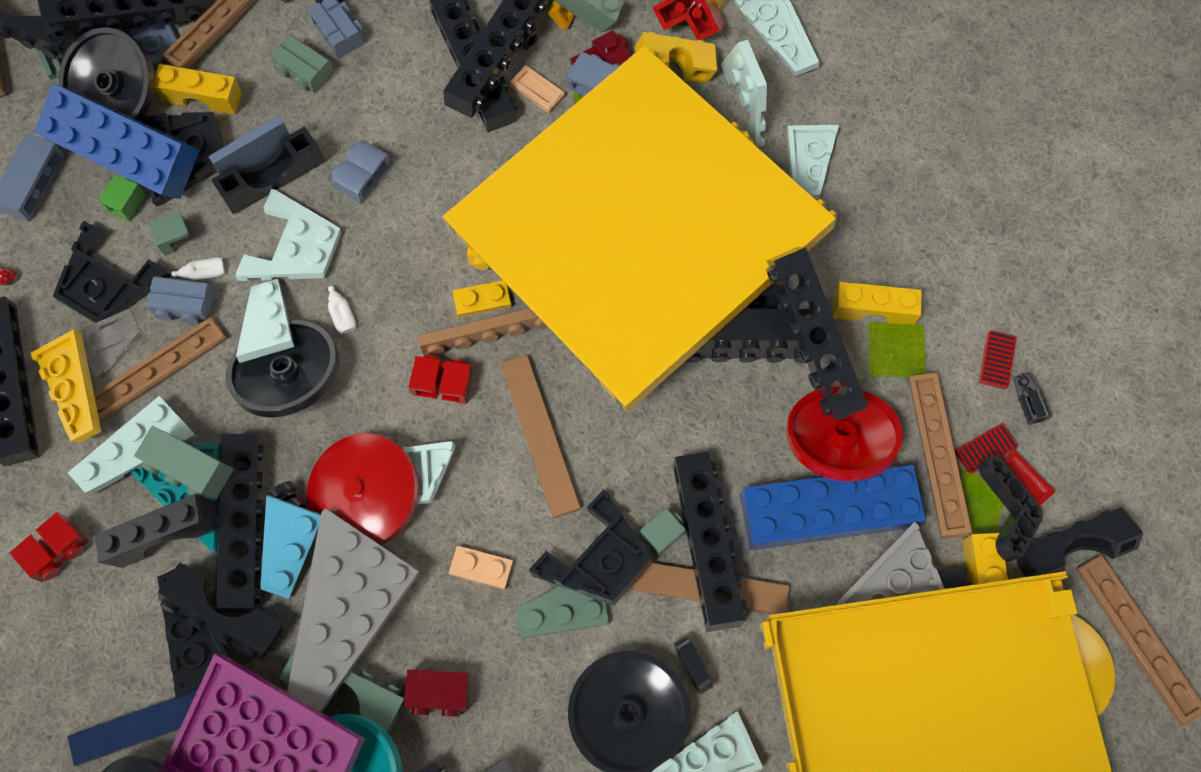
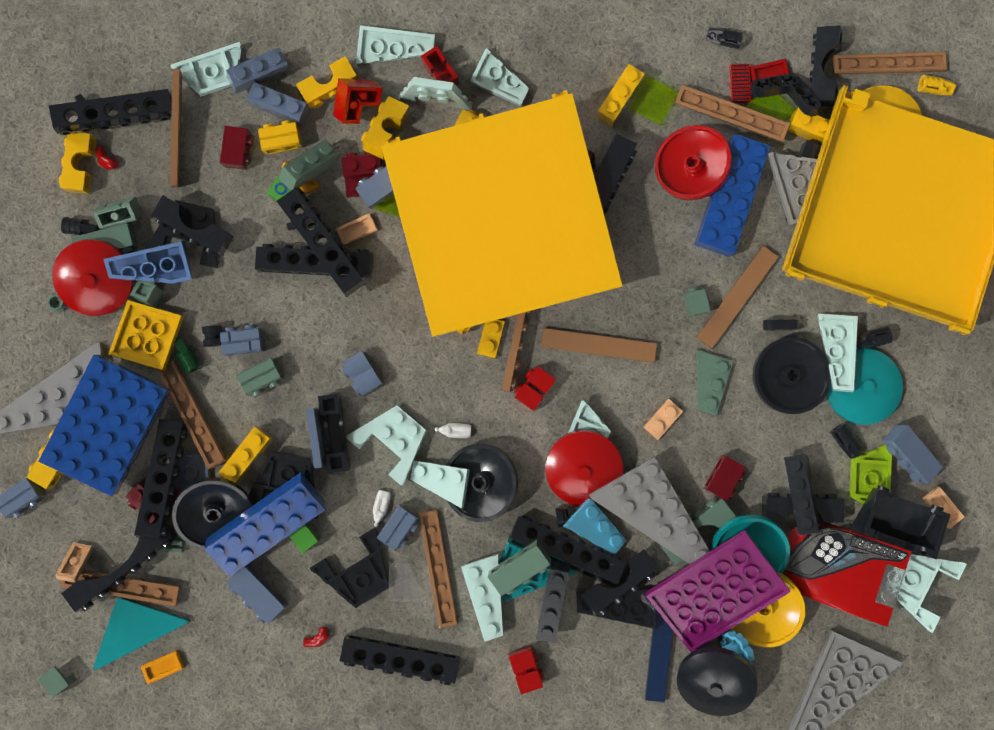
camera: 65 degrees left, 15 degrees up
(68, 376) = (415, 617): yellow wing -> none
(168, 230) = (346, 515): sand green panel -> none
(607, 565) = (701, 342): black wing -> none
(715, 613) = (724, 287): black brick -> none
(783, 81) = (436, 64): none -> red piece
(850, 396) = (664, 149): black brick -> none
(997, 360) = (689, 42): red tile -> none
(1152, 720) = (936, 85): none -> yellow hinge

